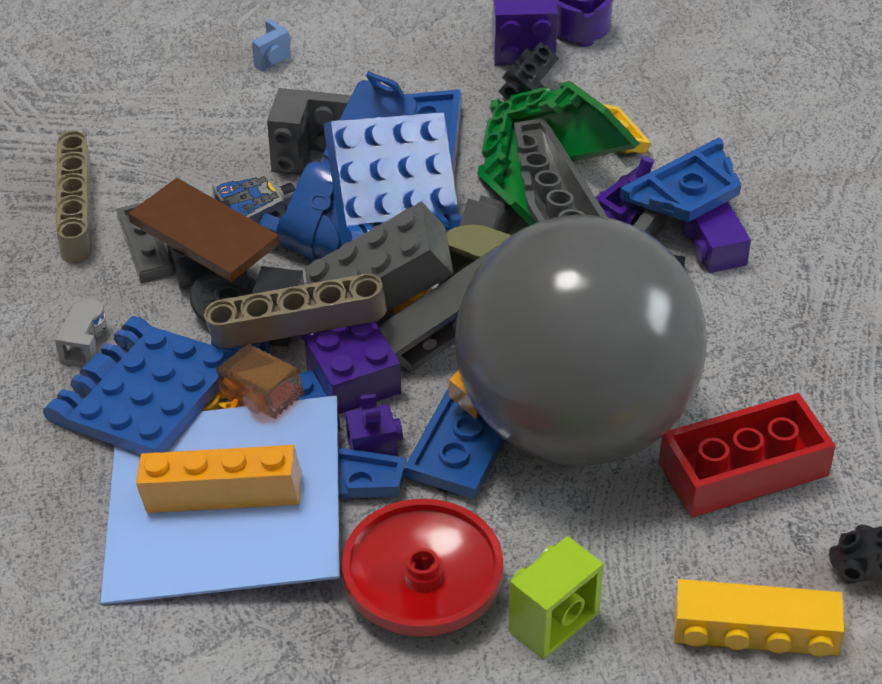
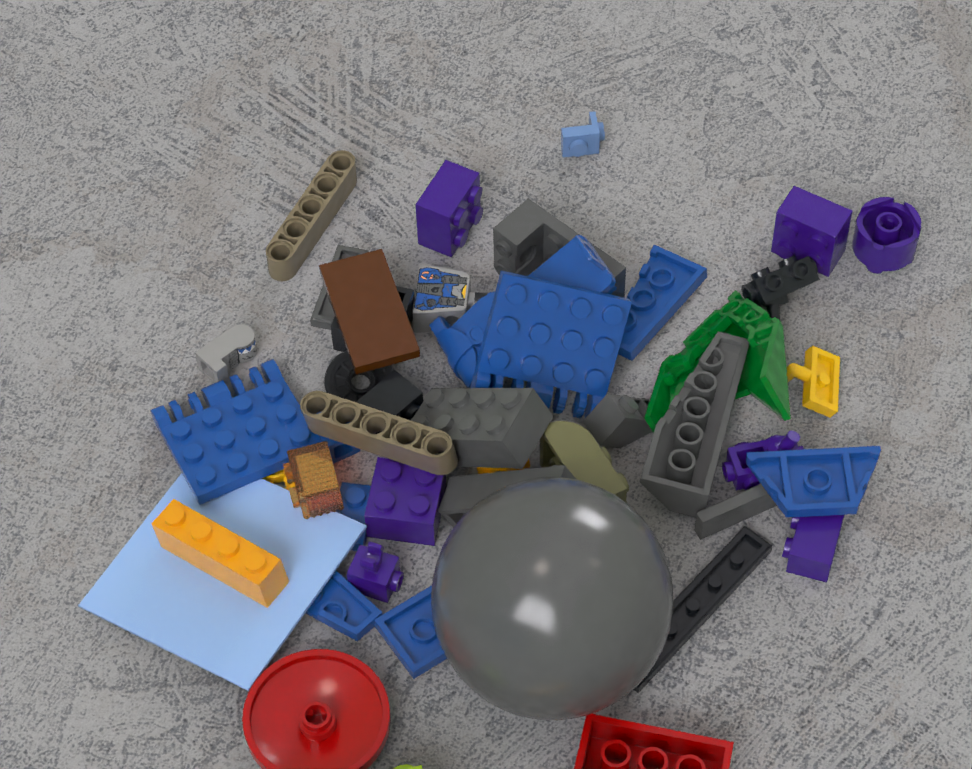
camera: 35 degrees right, 10 degrees up
(204, 134) = (449, 208): none -> dark purple brick

